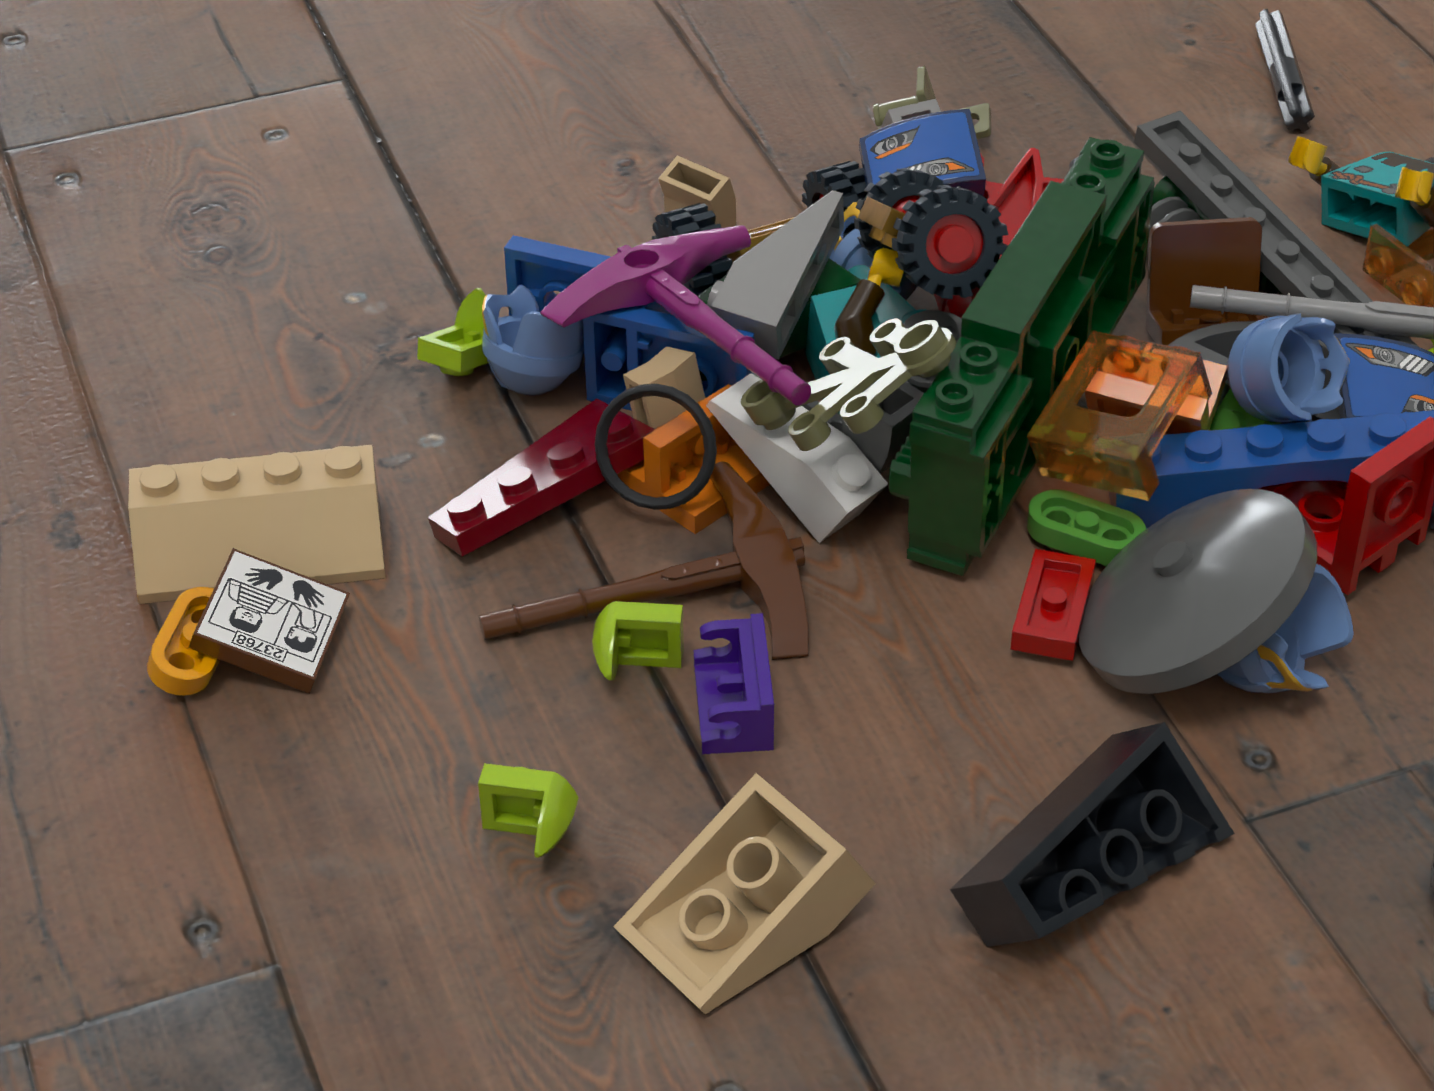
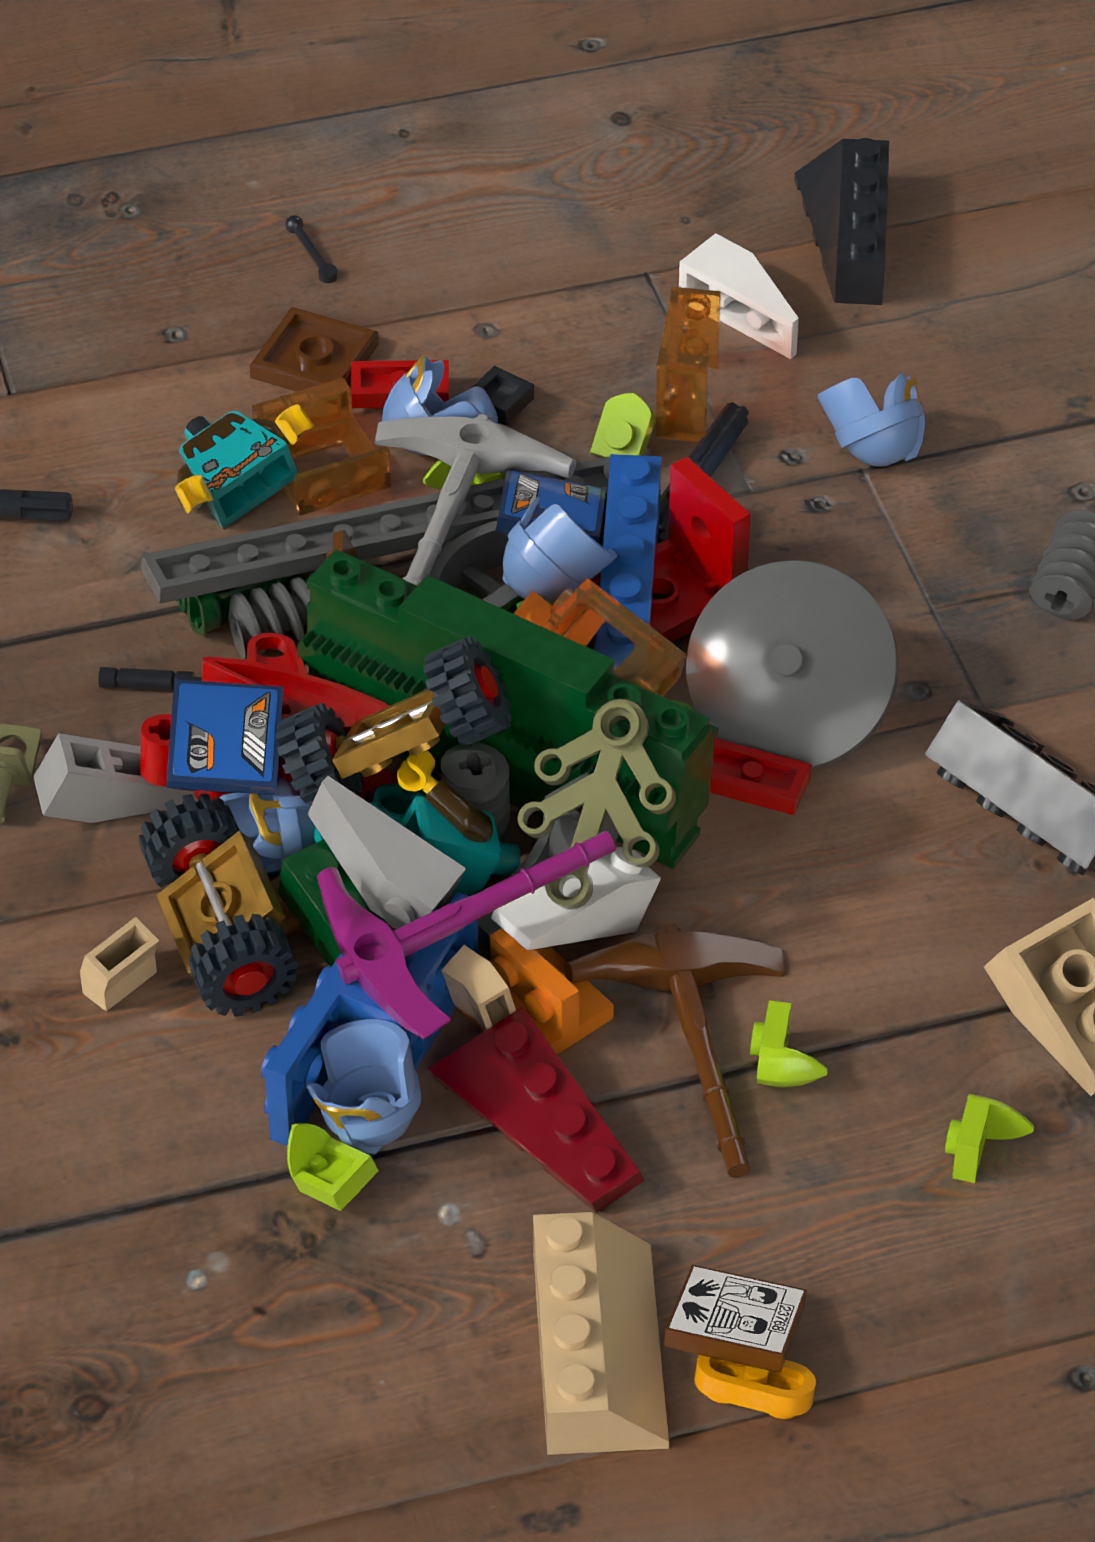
camera: 85 degrees left, 5 degrees up
(700, 417) = (537, 996): black tyre -> none
(735, 687) = (840, 988): dark purple hinge -> none

